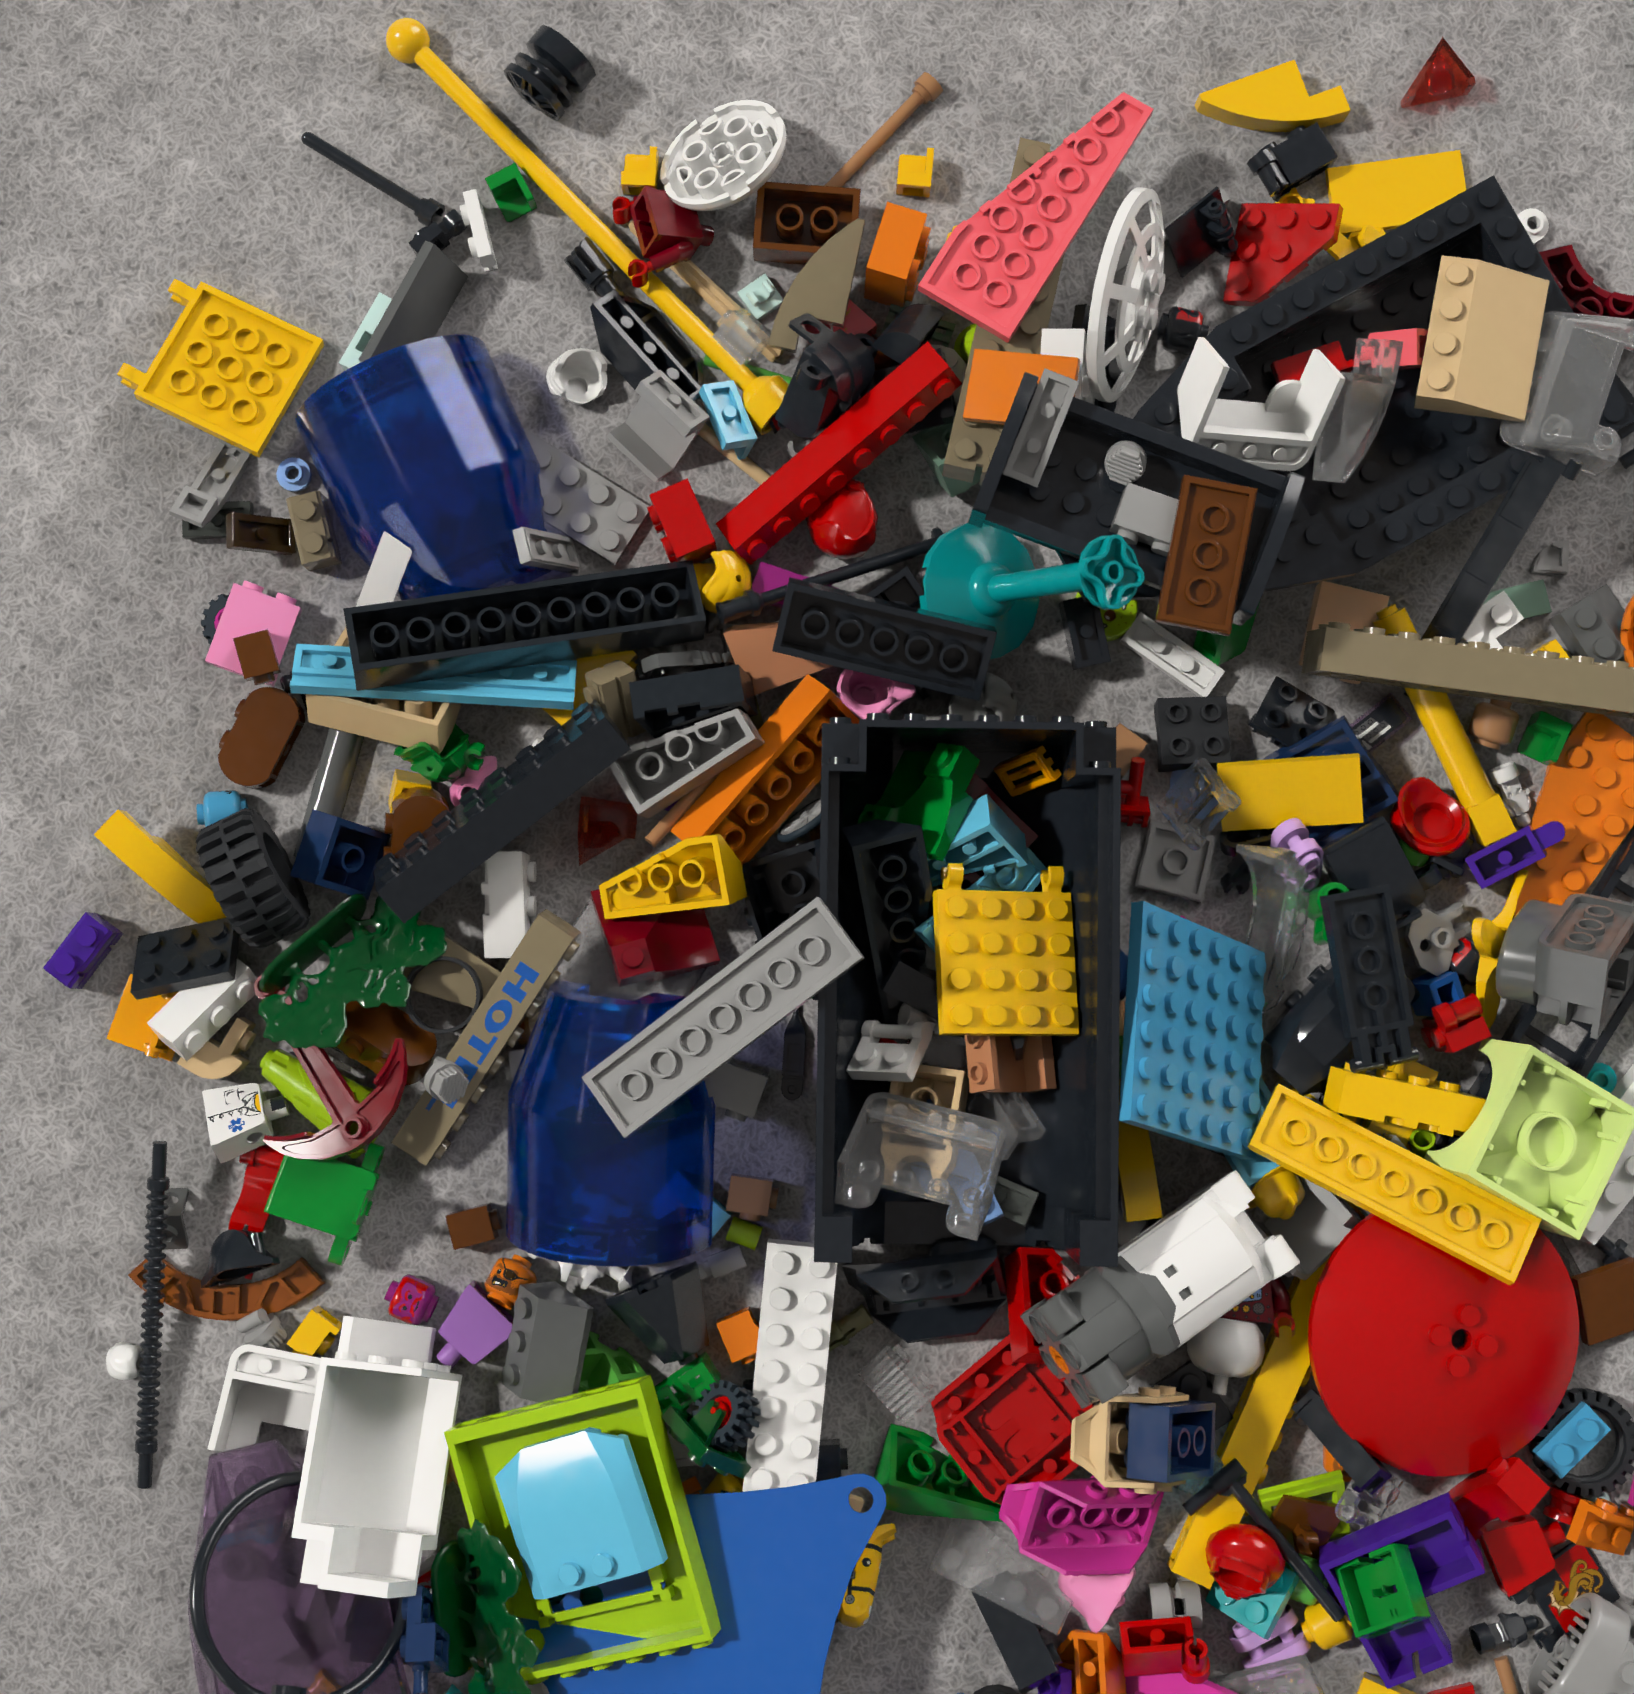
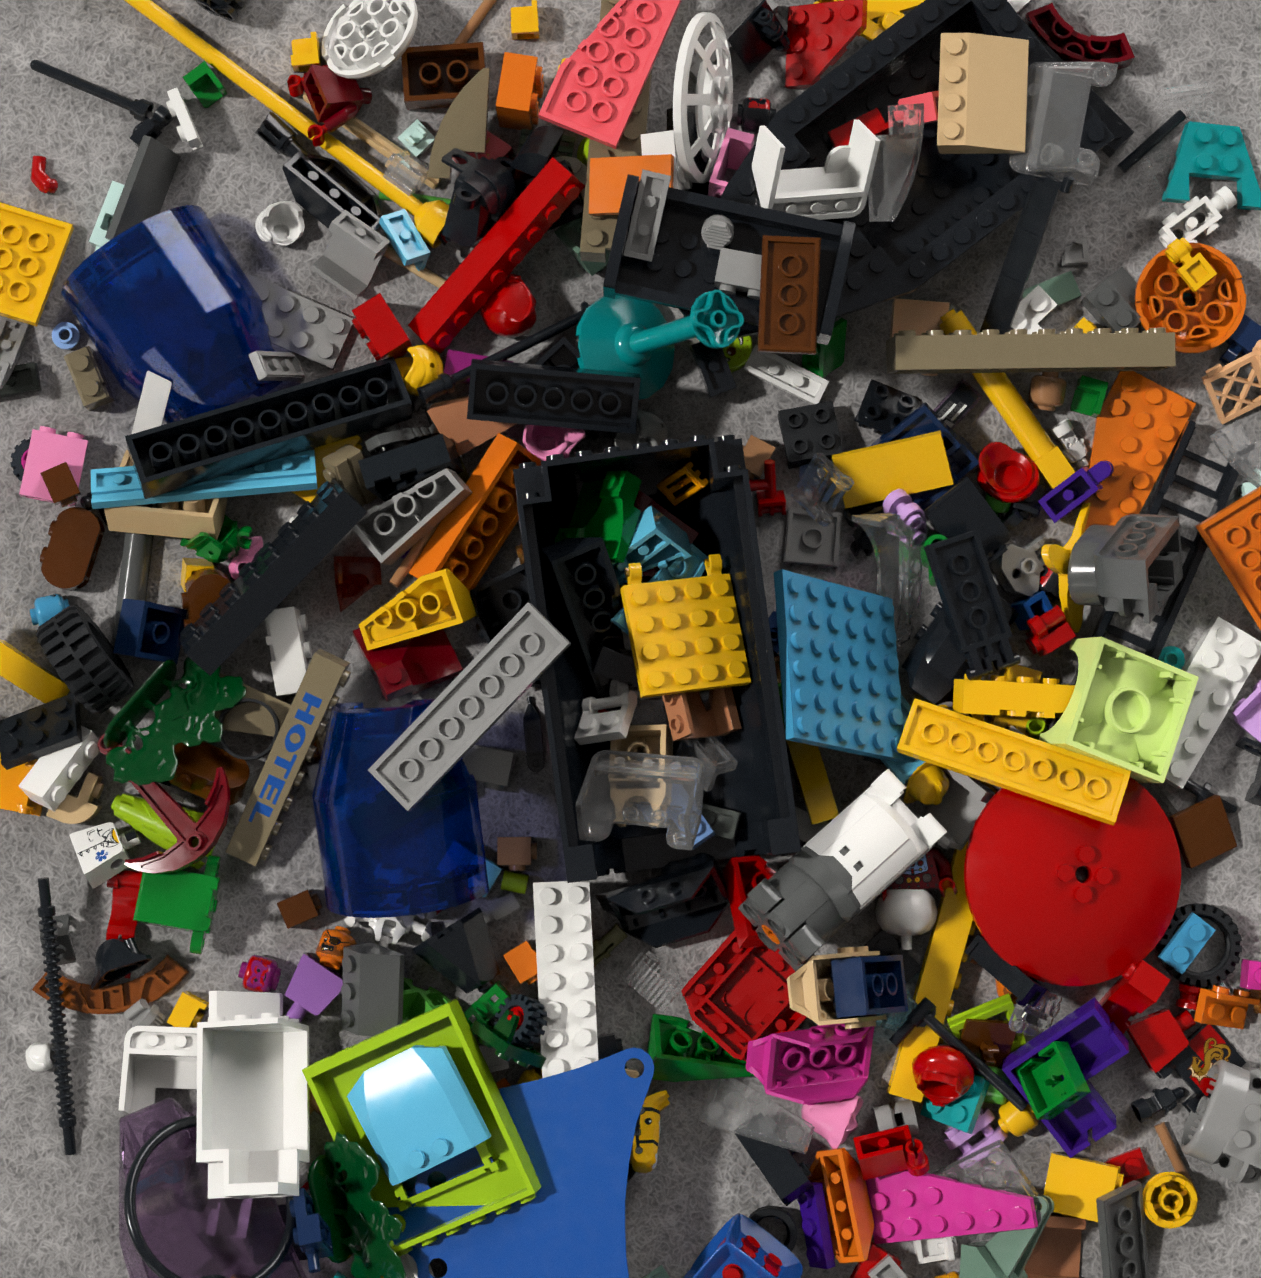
camera: 10 degrees left, 0 degrees up
(260, 534) = (47, 387): dark brown plate -> none
(292, 276) = (40, 178): none -> red arm
(445, 1081) = (261, 795): light grey piece -> none
(801, 822) = (509, 552): wheel -> none
(1149, 373) = (731, 155): none -> bright pink panel

